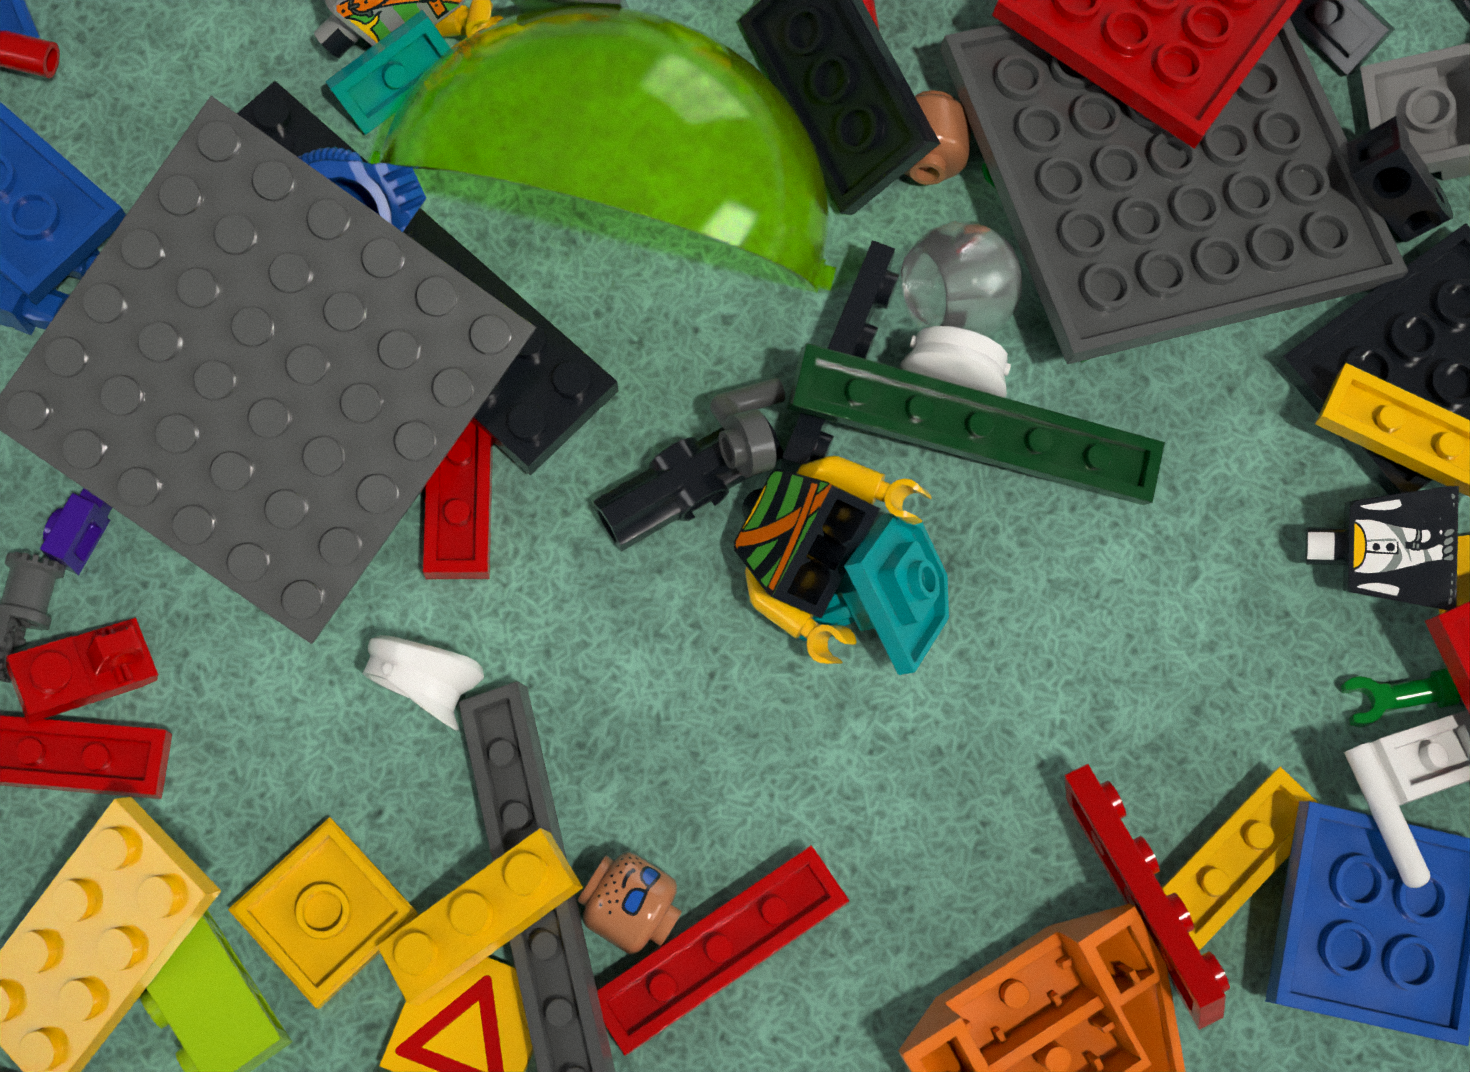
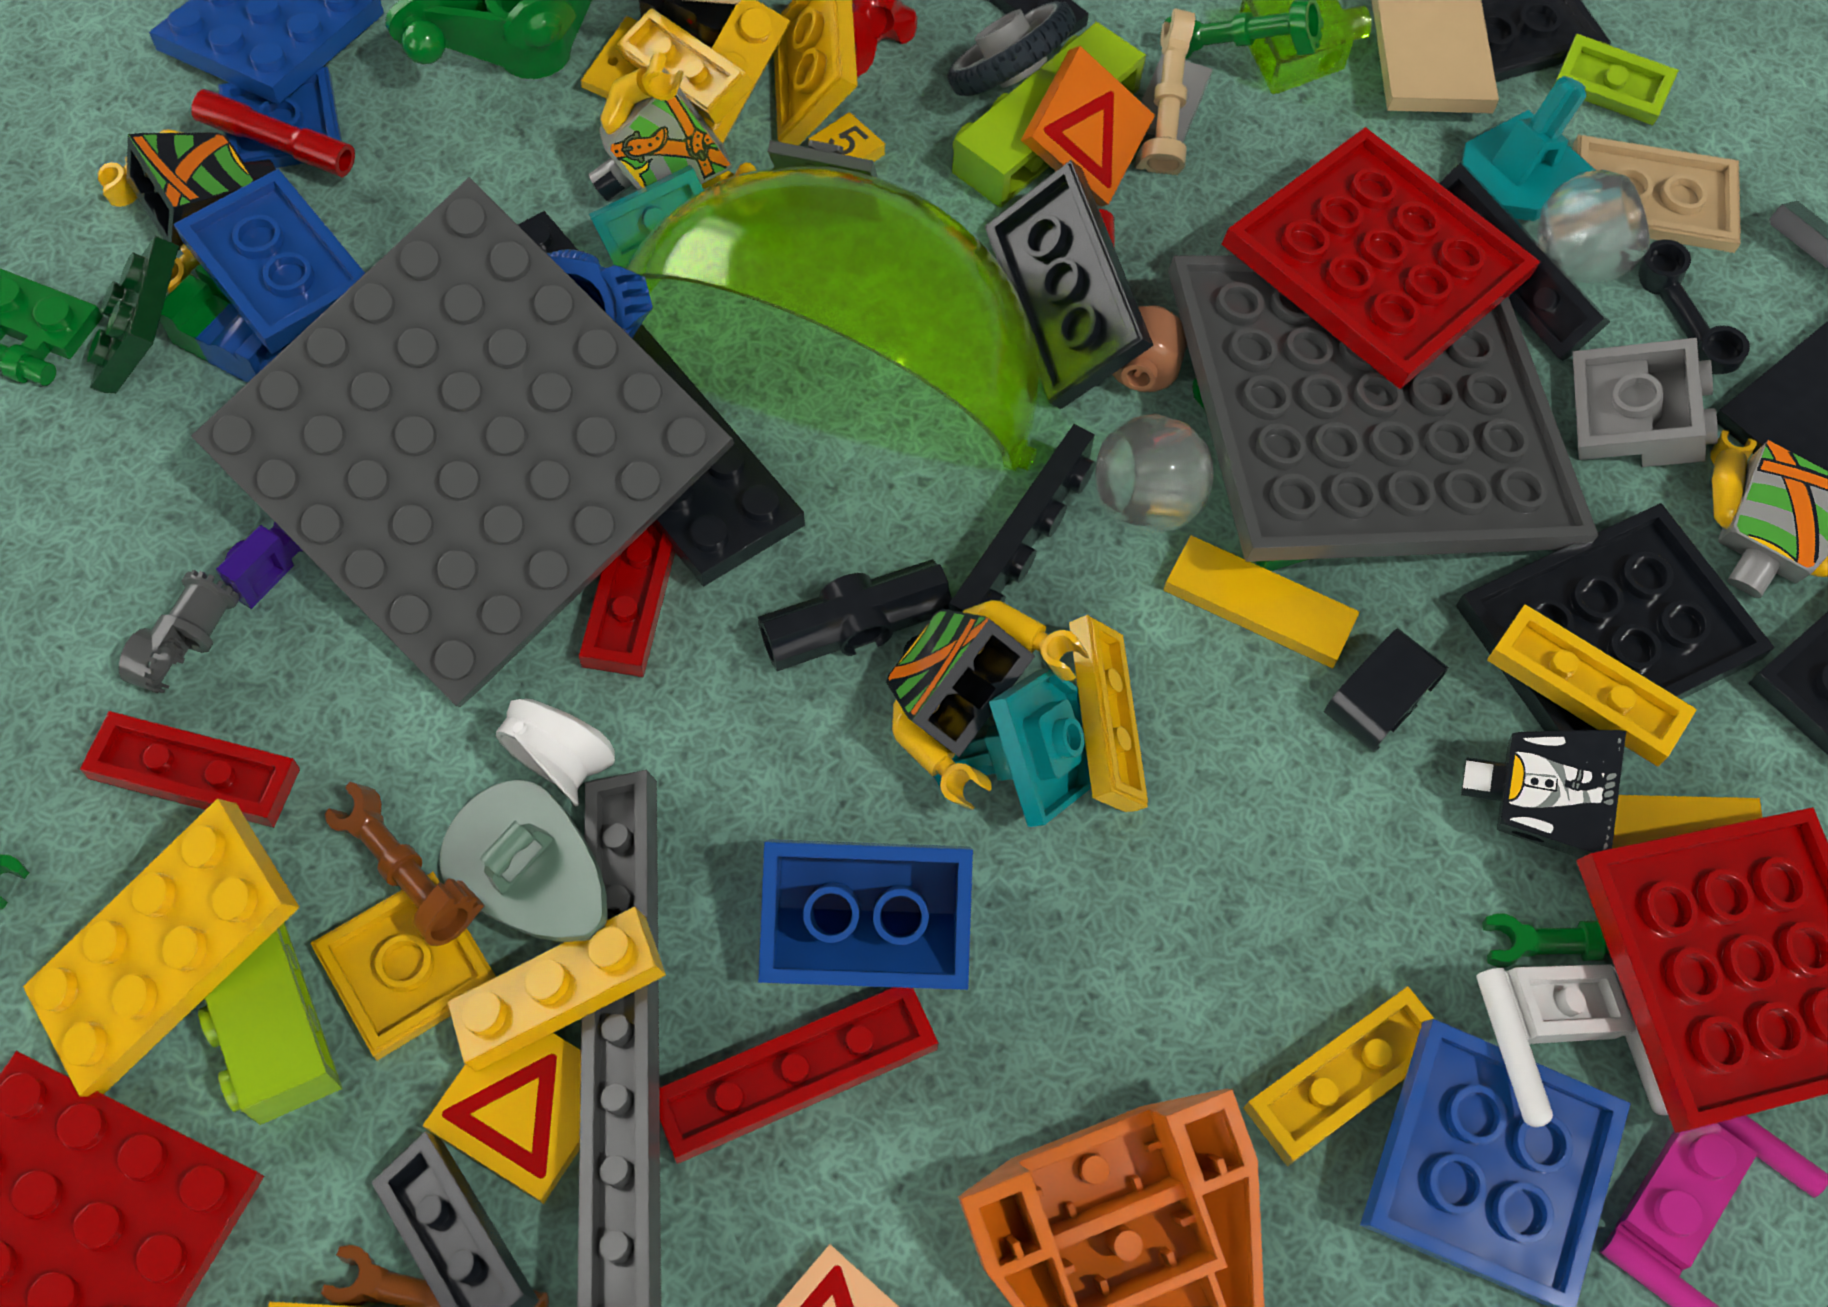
camera: 10 degrees right, 10 degrees down
(81, 670) = (227, 690): red hinge -> none
(350, 859) = (442, 909): none -> dark orange piece
(419, 796) = (526, 863): none -> sand green shield
(630, 902) = (712, 1004): nougat head -> none
(746, 434) = (916, 568): dark grey plate -> none
(760, 787) = (866, 914): none -> blue slope
(955, 542) = (1108, 717): none -> yellow tile
(959, 358) = (1135, 552): white piece -> none
(975, 424) = (1148, 605): dark green plate -> none
(1091, 391) = (1261, 601): none -> yellow tile
(1133, 868) = (1237, 1058): red plate -> none
(1221, 468) = (1385, 689): none -> black beam
(1397, 180) = (1598, 452): black leg -> none

